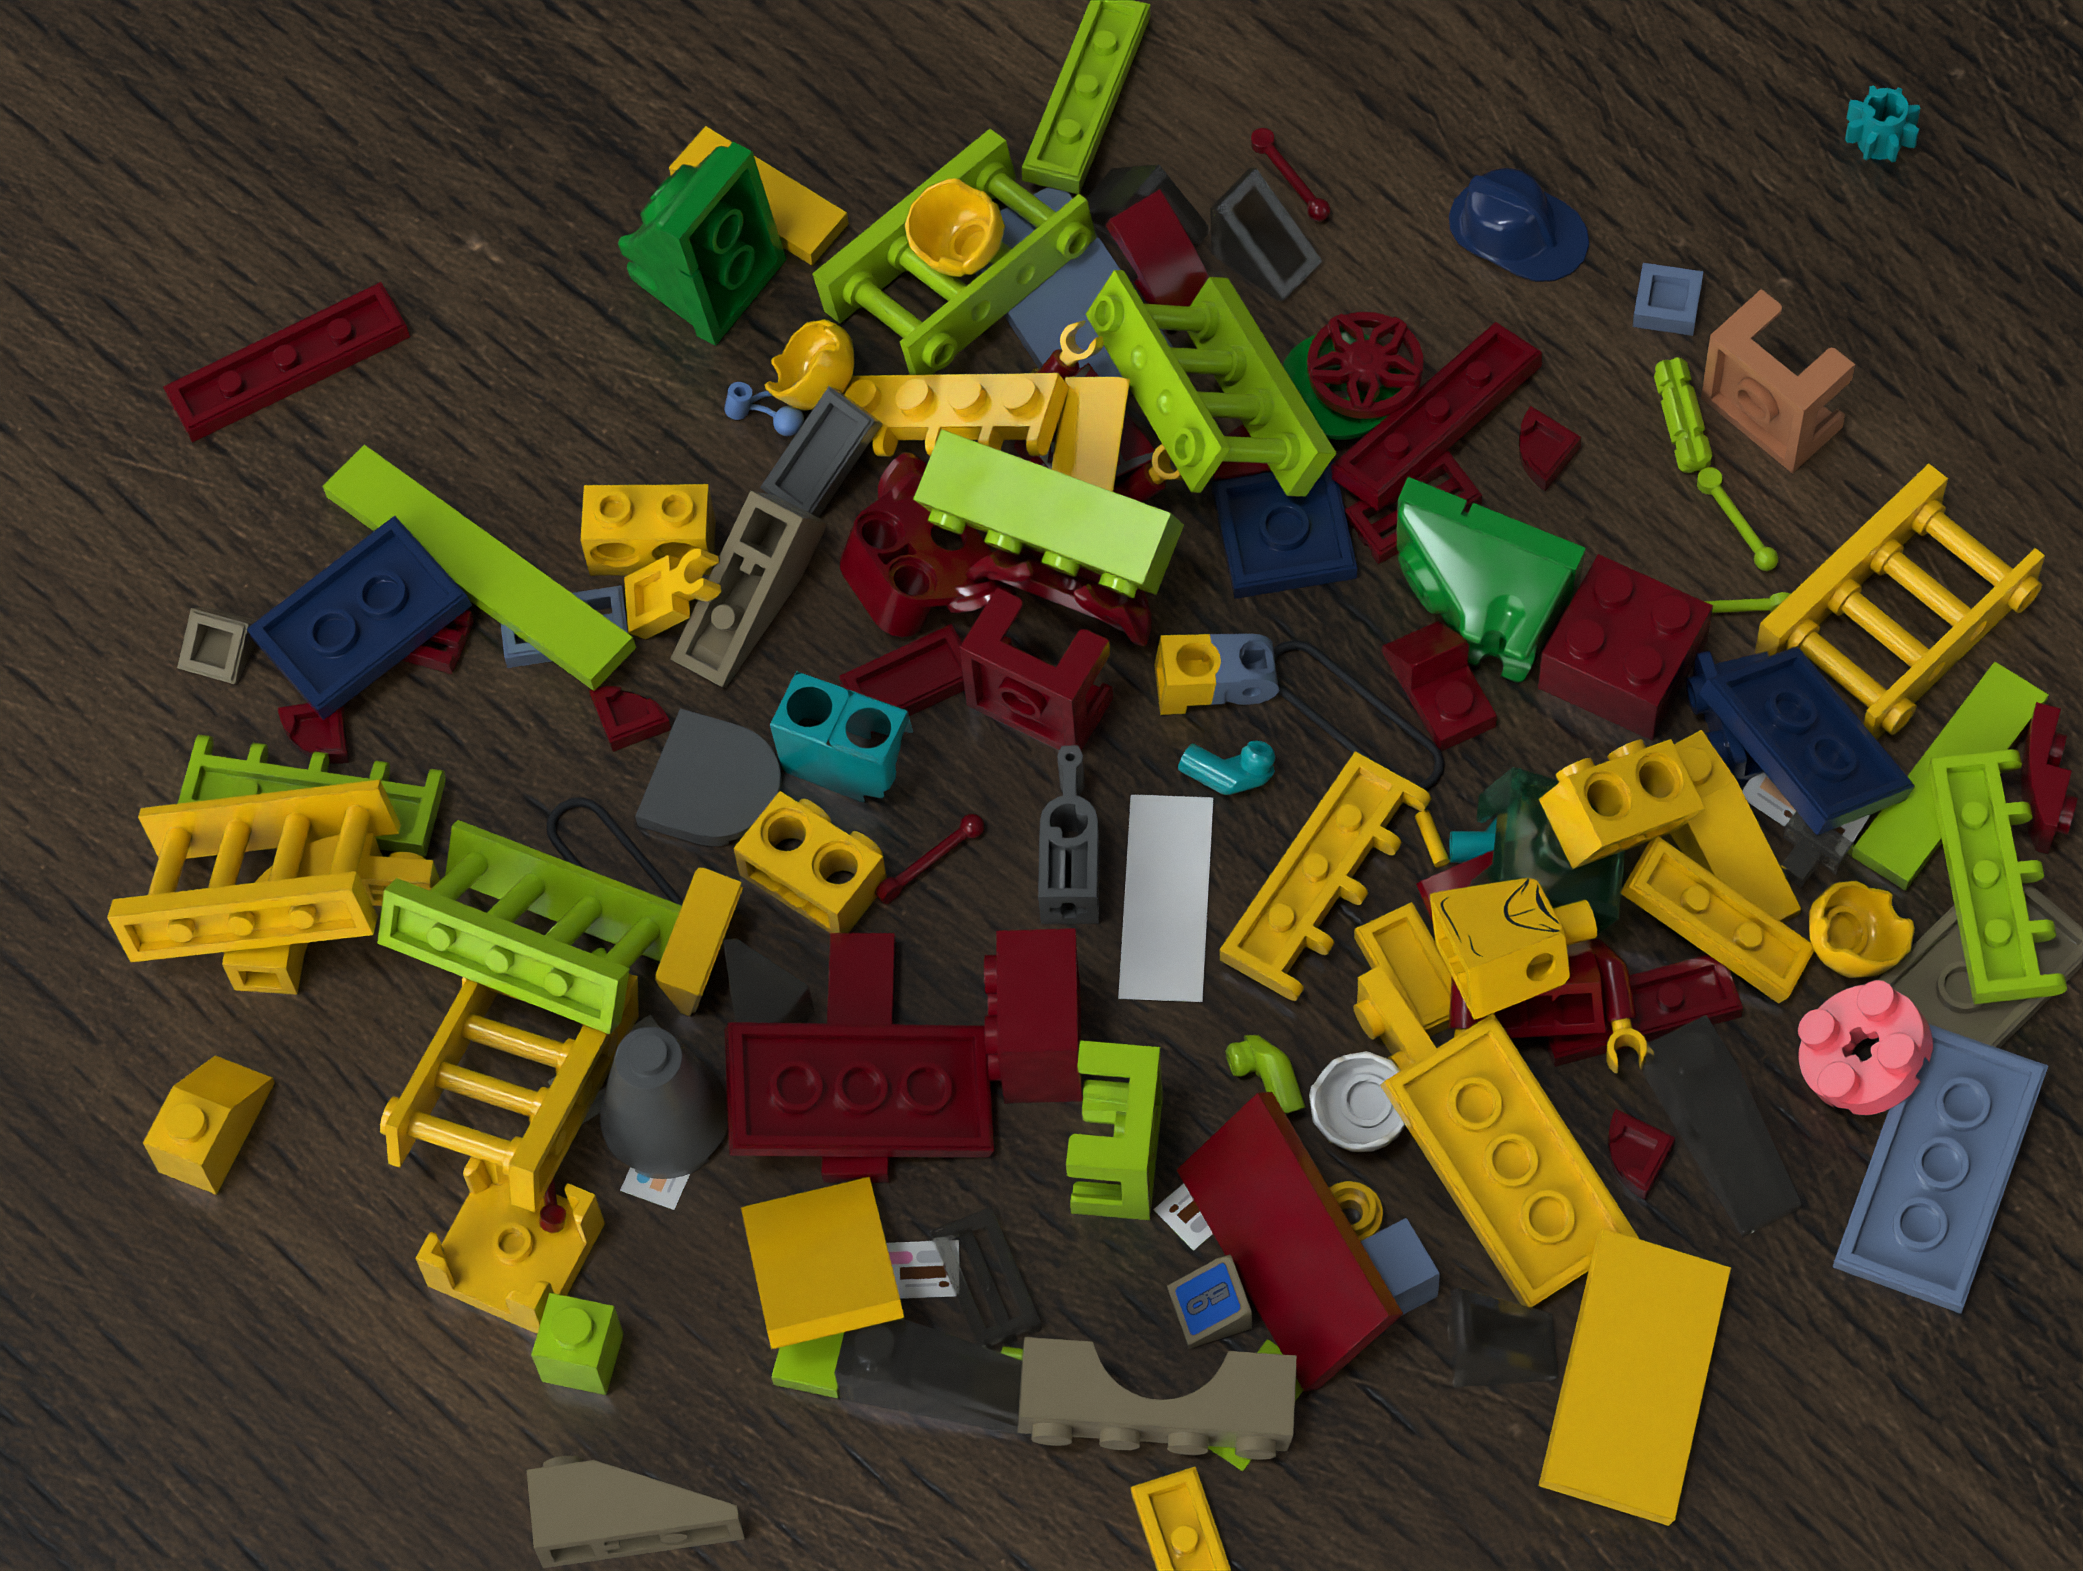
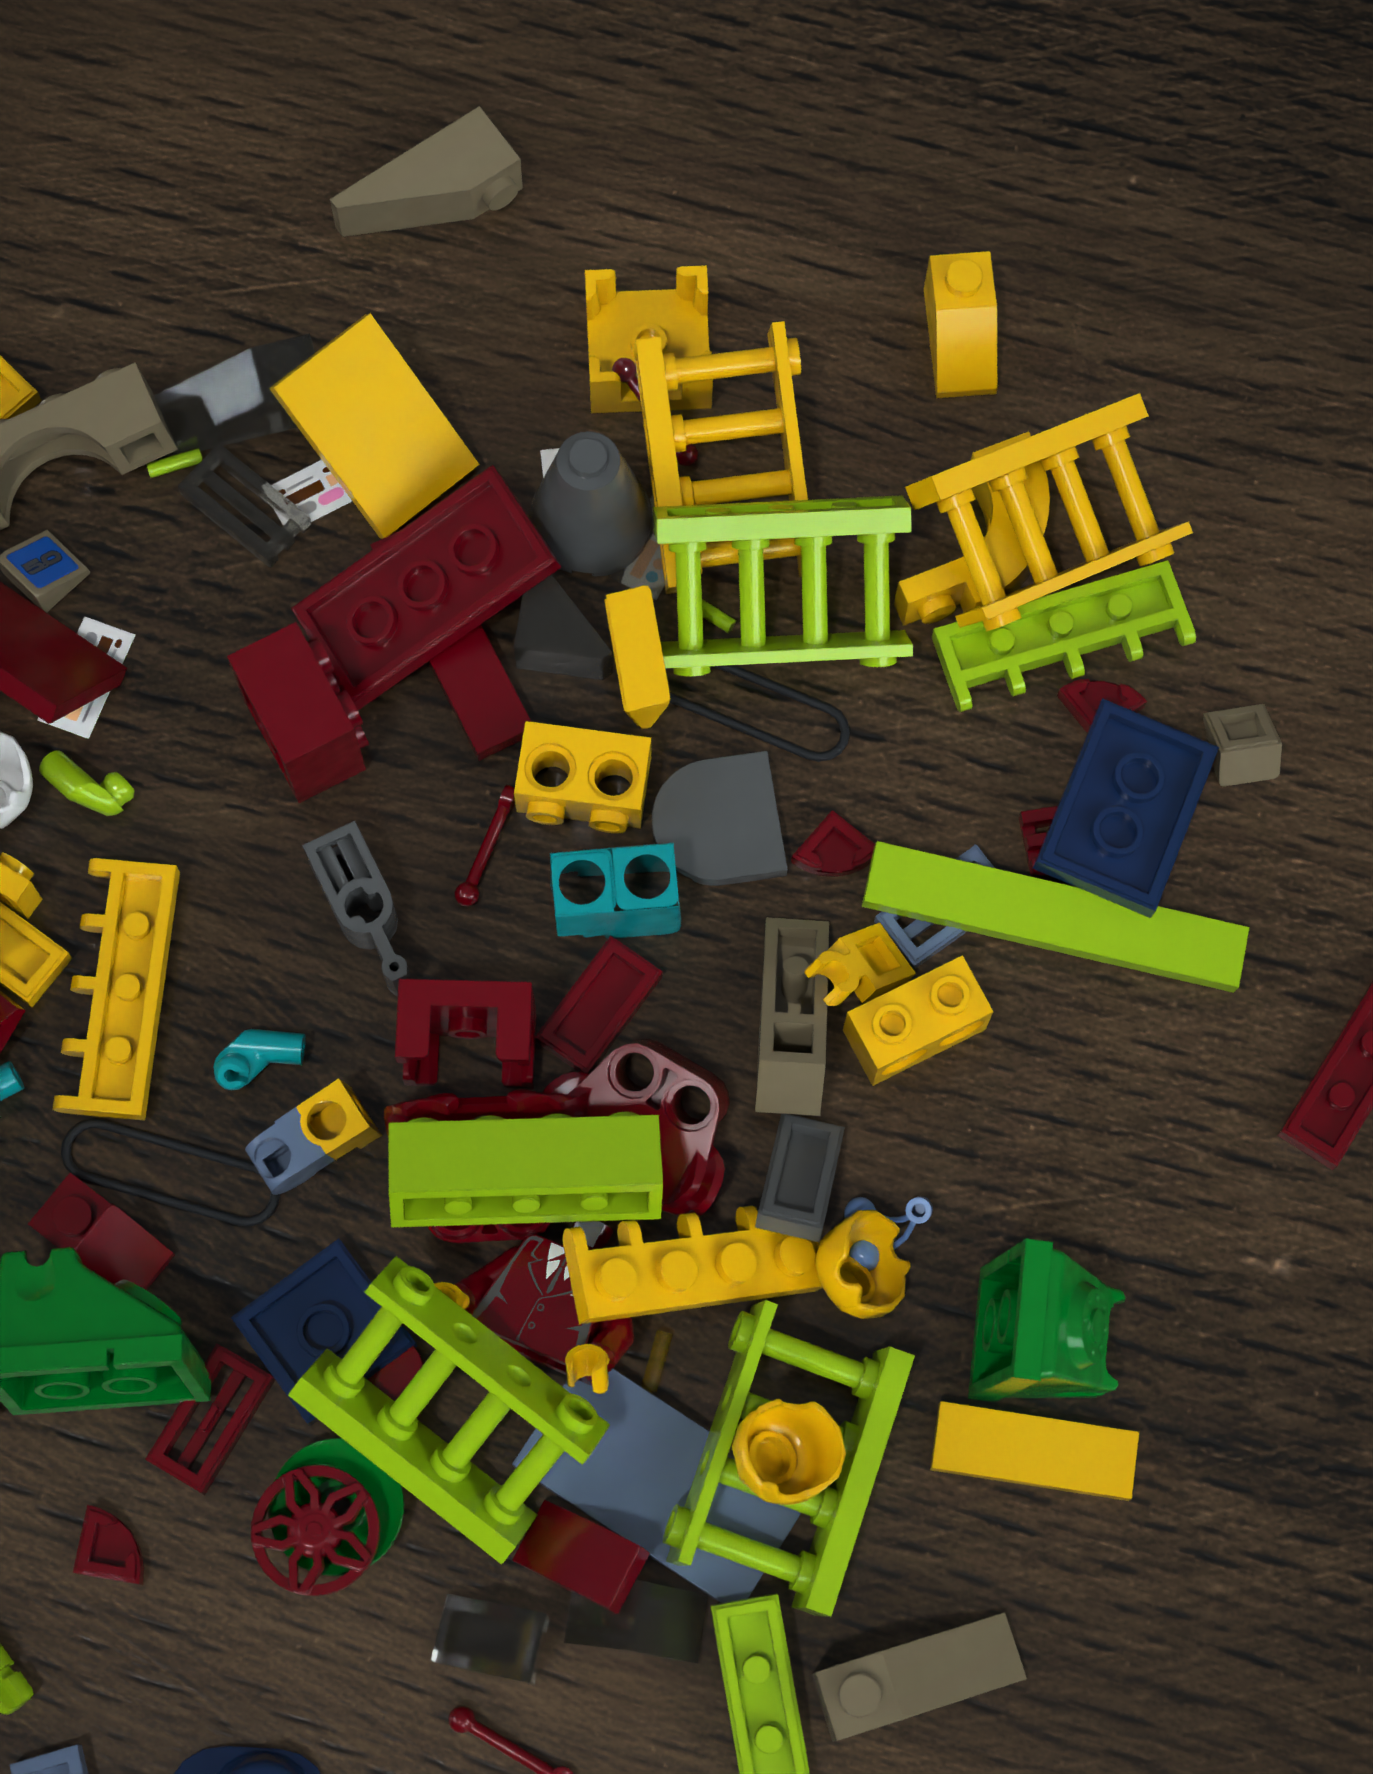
camera: 145 degrees right, 10 degrees up
(577, 1343) = (544, 285): lime brick -> none
(954, 80) = (918, 1676): none -> dark tan slope
(1091, 429) = (533, 1286): yellow slope -> none
(1136, 1118) = (158, 634): lime panel -> none
(1166, 898) = (260, 916): white sticker -> none
(1432, 838) = (38, 1079): yellow piece -> none
(1436, 415) = (220, 1527): dark red tile -> none

